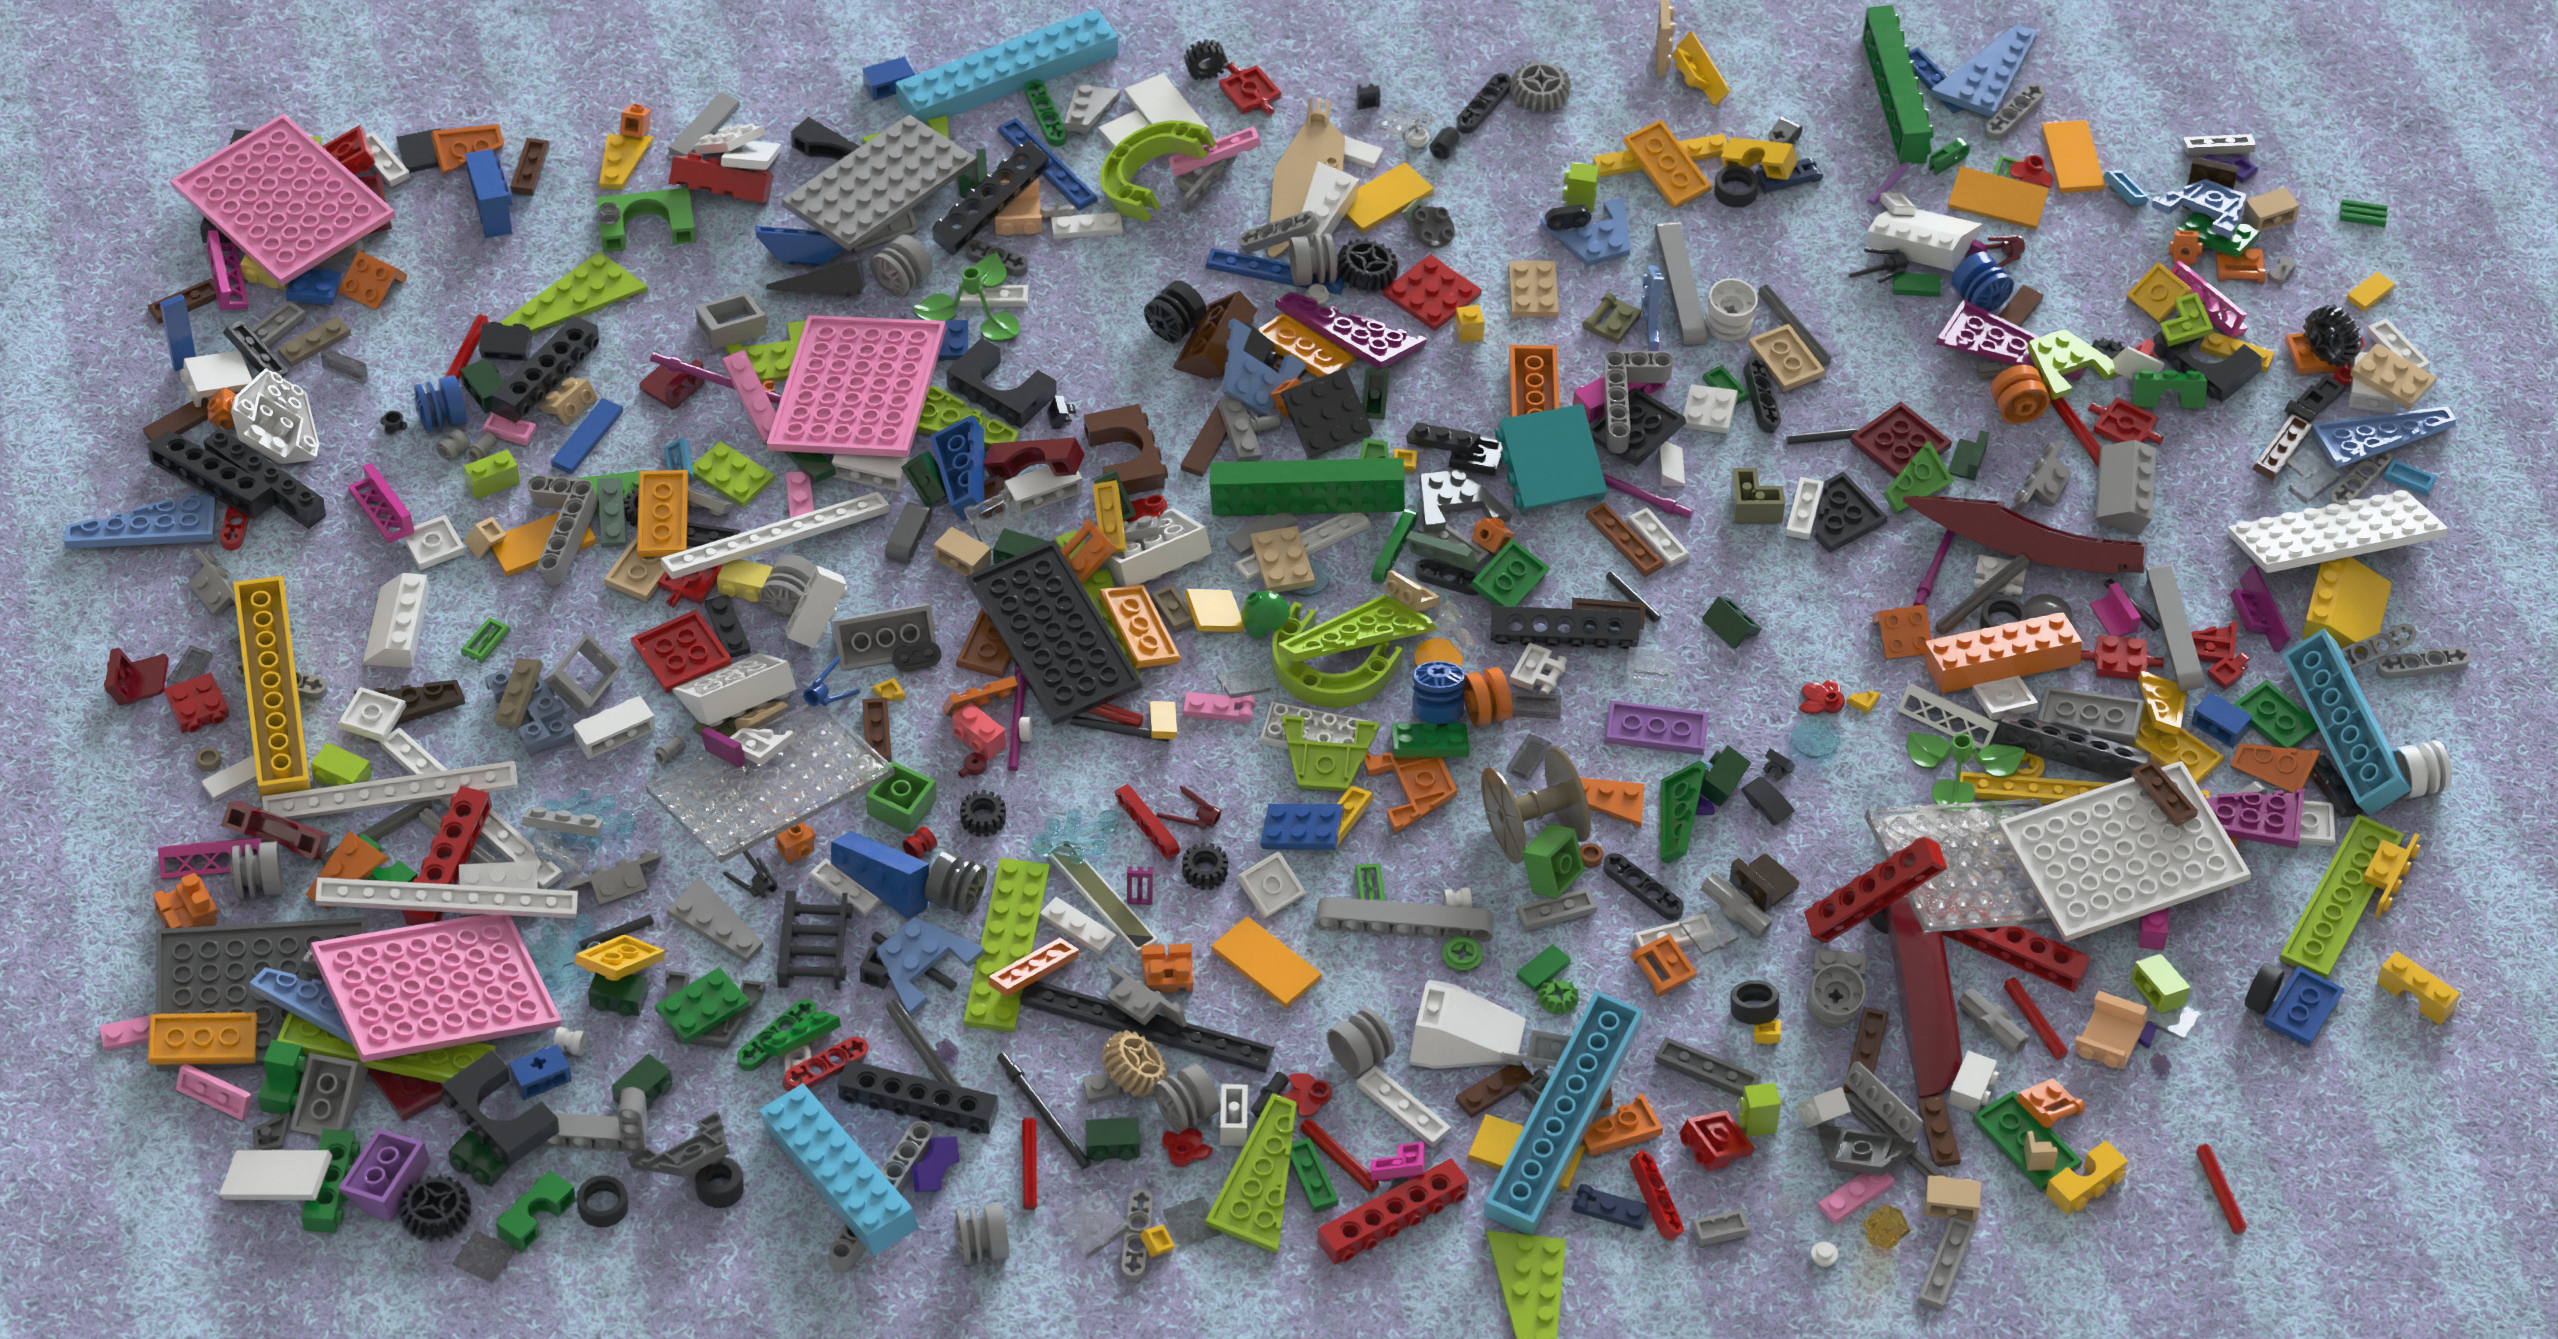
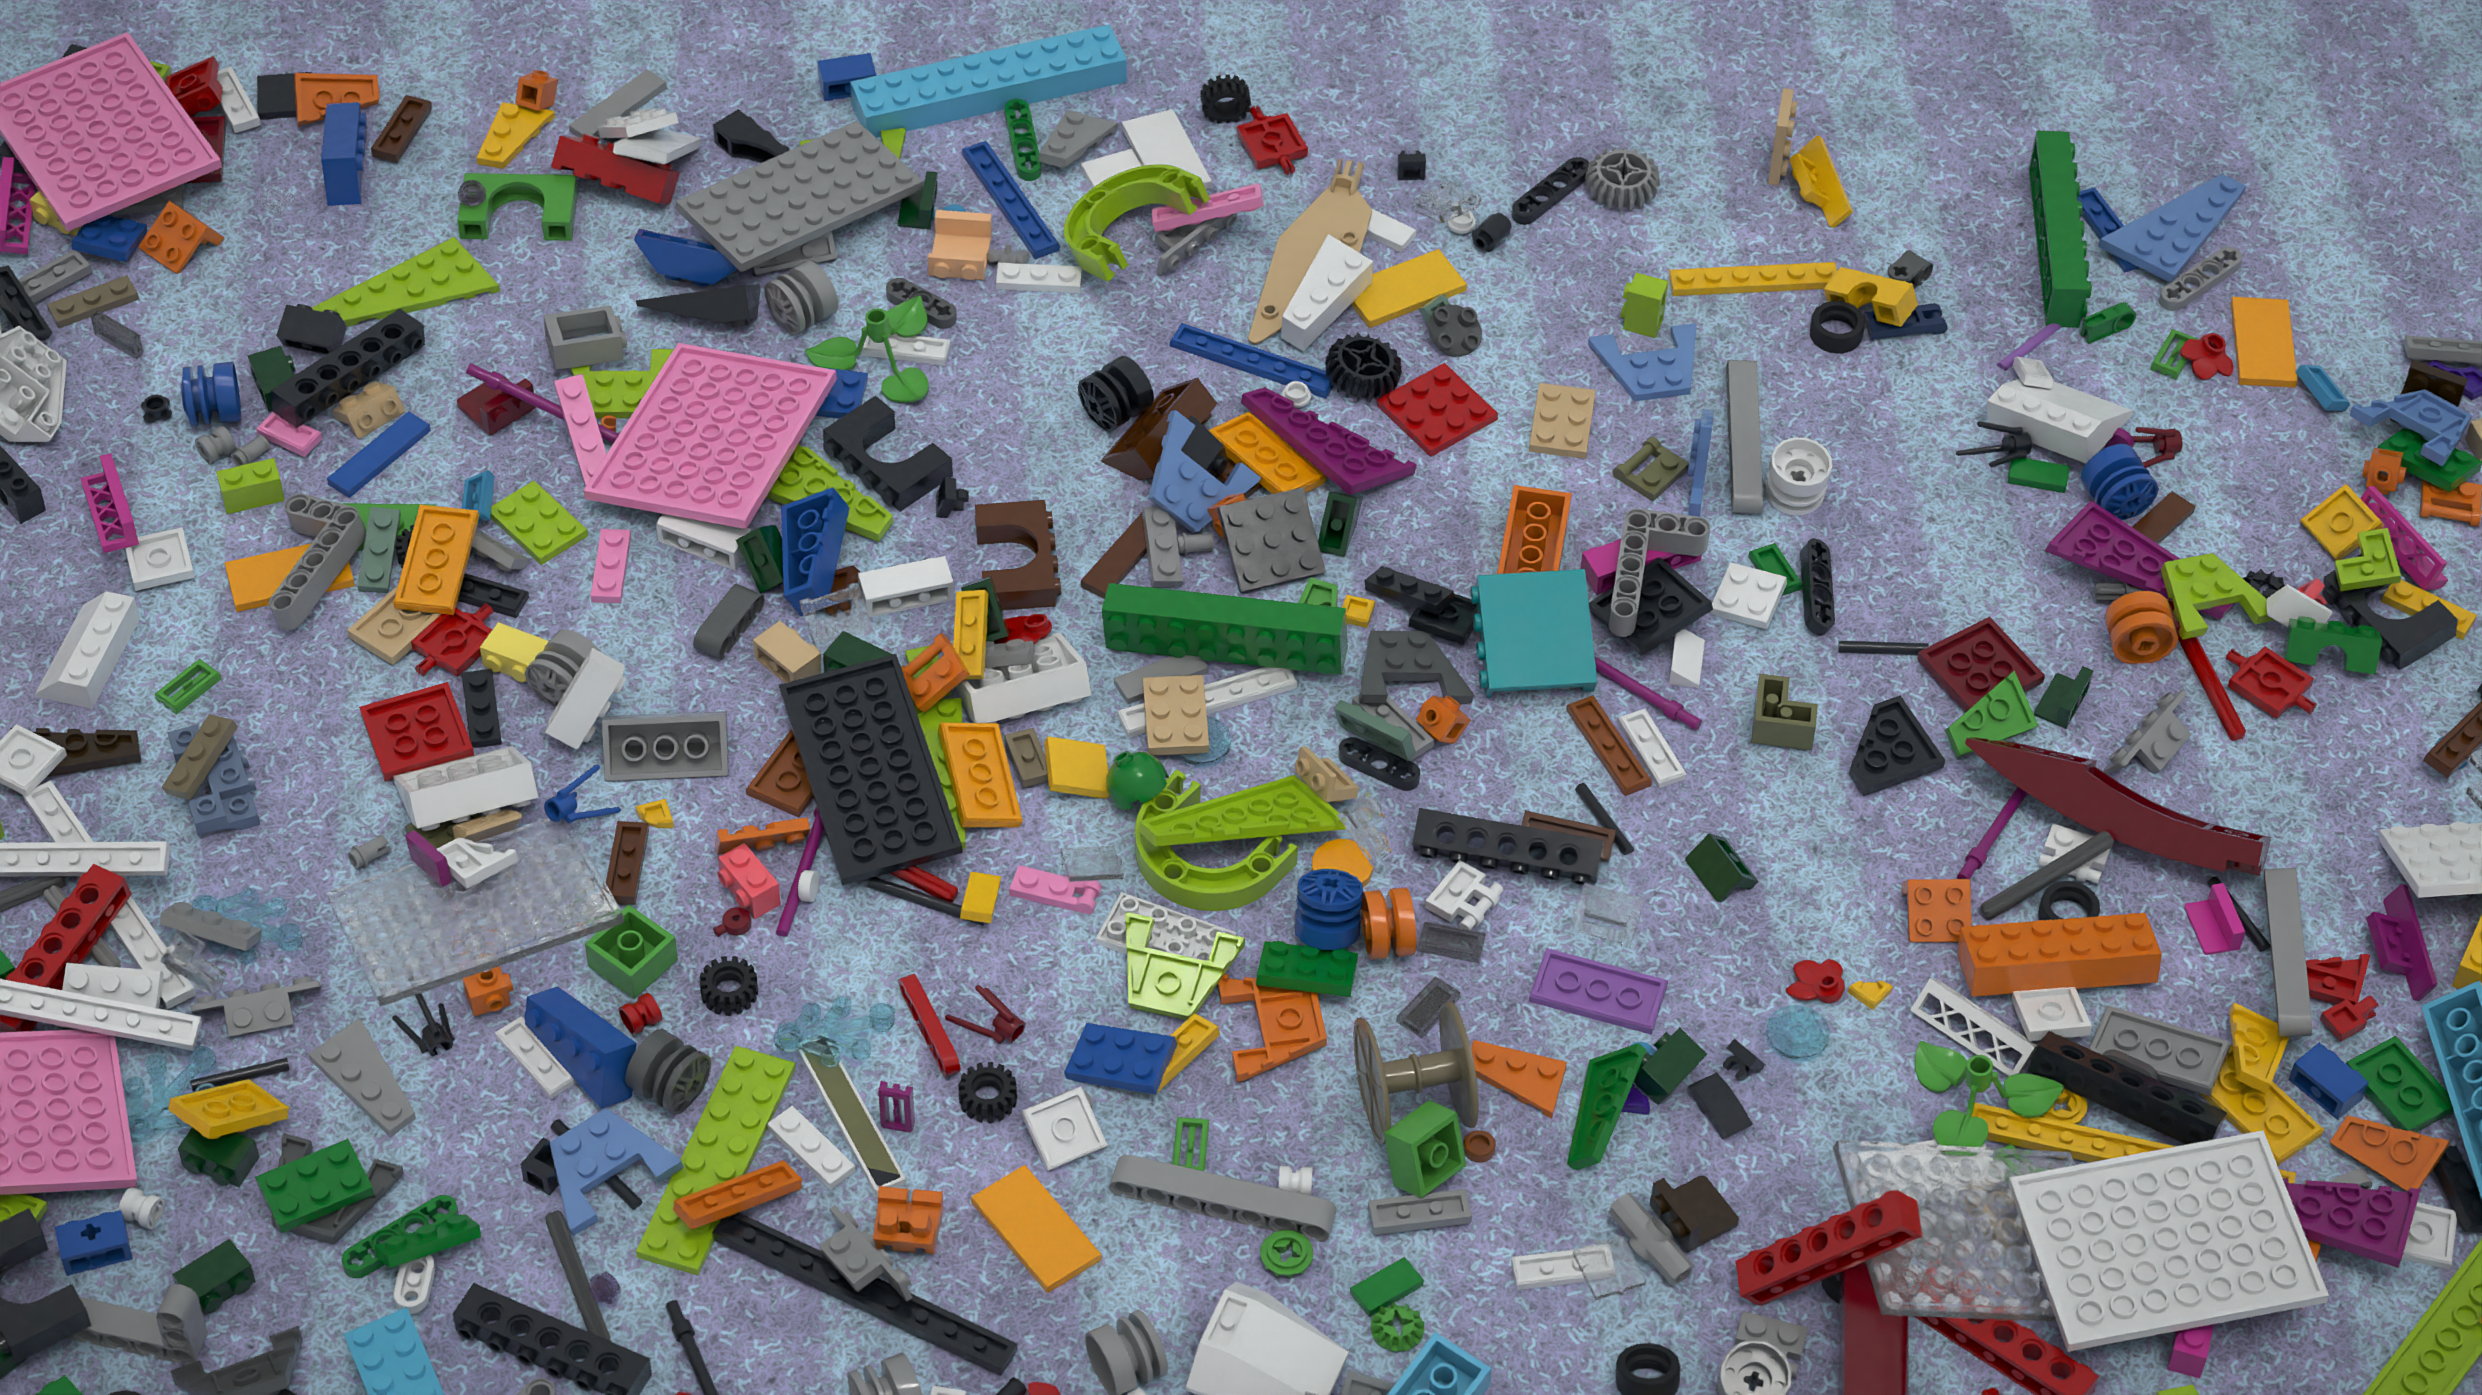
camera: 10 degrees right, 0 degrees up
(467, 347) = (264, 335): red axle -> none
(484, 536) = (220, 558): tan panel -> none
(568, 688) = (263, 761): light grey window -> none
(614, 727) = (308, 815): white brick -> none
(774, 535) = (563, 603): white plate -> none
(791, 929) = (453, 1101): black fence -> none
(813, 464) = (636, 524): dark green tile -> none
(823, 1062) = (444, 1282): red beam -> none
(916, 656) = (698, 775): black plate -> none
(953, 239) = (944, 228): black brick -> none
(1011, 458) = (874, 546): dark red arch -> none
(1100, 1088) = (789, 1363): light grey bracket -> none
(1133, 1063) = (830, 1340): tan gear -> none
(1300, 224) = (1263, 313): light grey beam -> none
(1307, 259) = (1296, 351): light grey wheel -> none
(1394, 545) = (1318, 715): green beam -> none
(1469, 323) = (1473, 453): yellow brick -> none
(1510, 576) = (1453, 773): green plate -> none
(1568, 217) = (1621, 339): black plate -> none
(1646, 884) = (1541, 1195): black beam -> none
(1667, 164) = (1757, 289): light orange tile -> none
(1669, 959) = (1551, 1303): orange plate -> none
(1786, 357) = (1857, 544): tan plate -> none
(1788, 317) = (1876, 506): dark grey axle -> none
(1804, 508) = (1842, 736): white plate -> none
(1998, 197) = (2160, 380): light orange tile -> none
(2045, 605) = (2128, 900): dark grey dish -> none
(2121, 657) = (2212, 980): red plate -> none
(2126, 485) = (2256, 760): light grey slope -> none
(2164, 793) = (2232, 1171): reddish brown plate -> none

